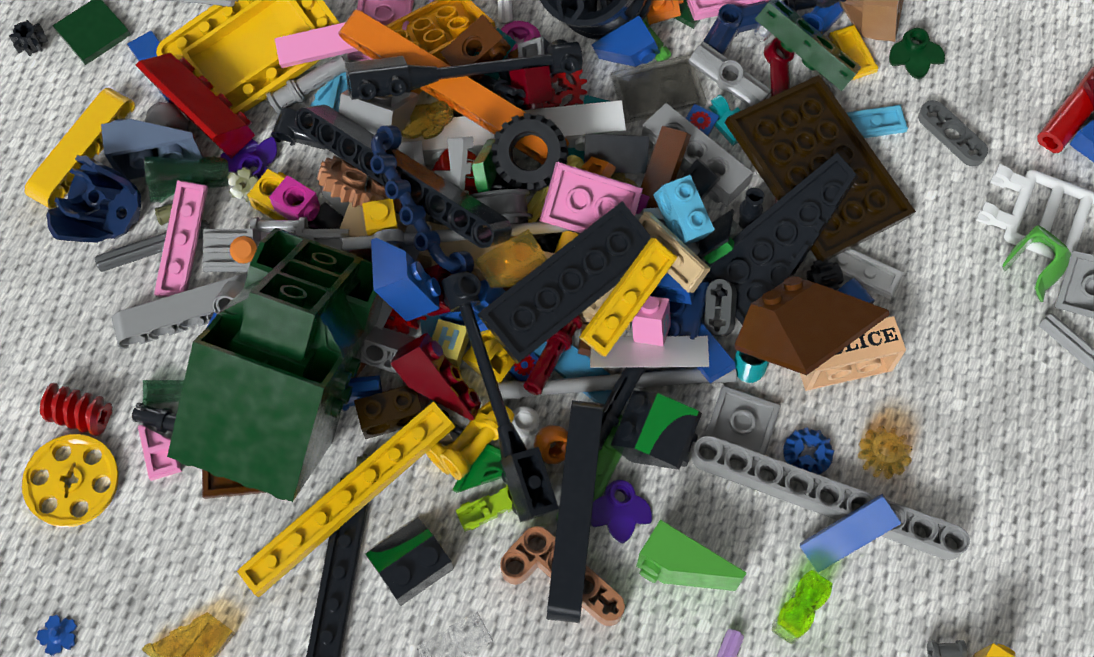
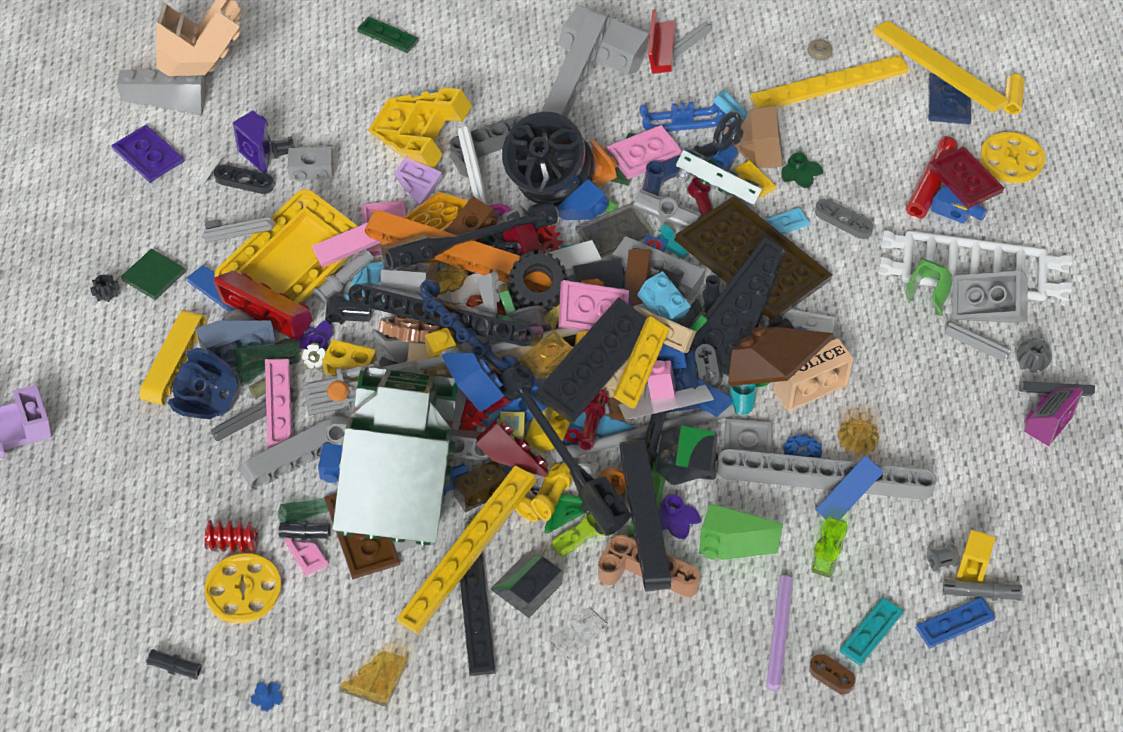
camera: 15 degrees left, 15 degrees down
(290, 192) = (363, 352): dark pink brick -> none

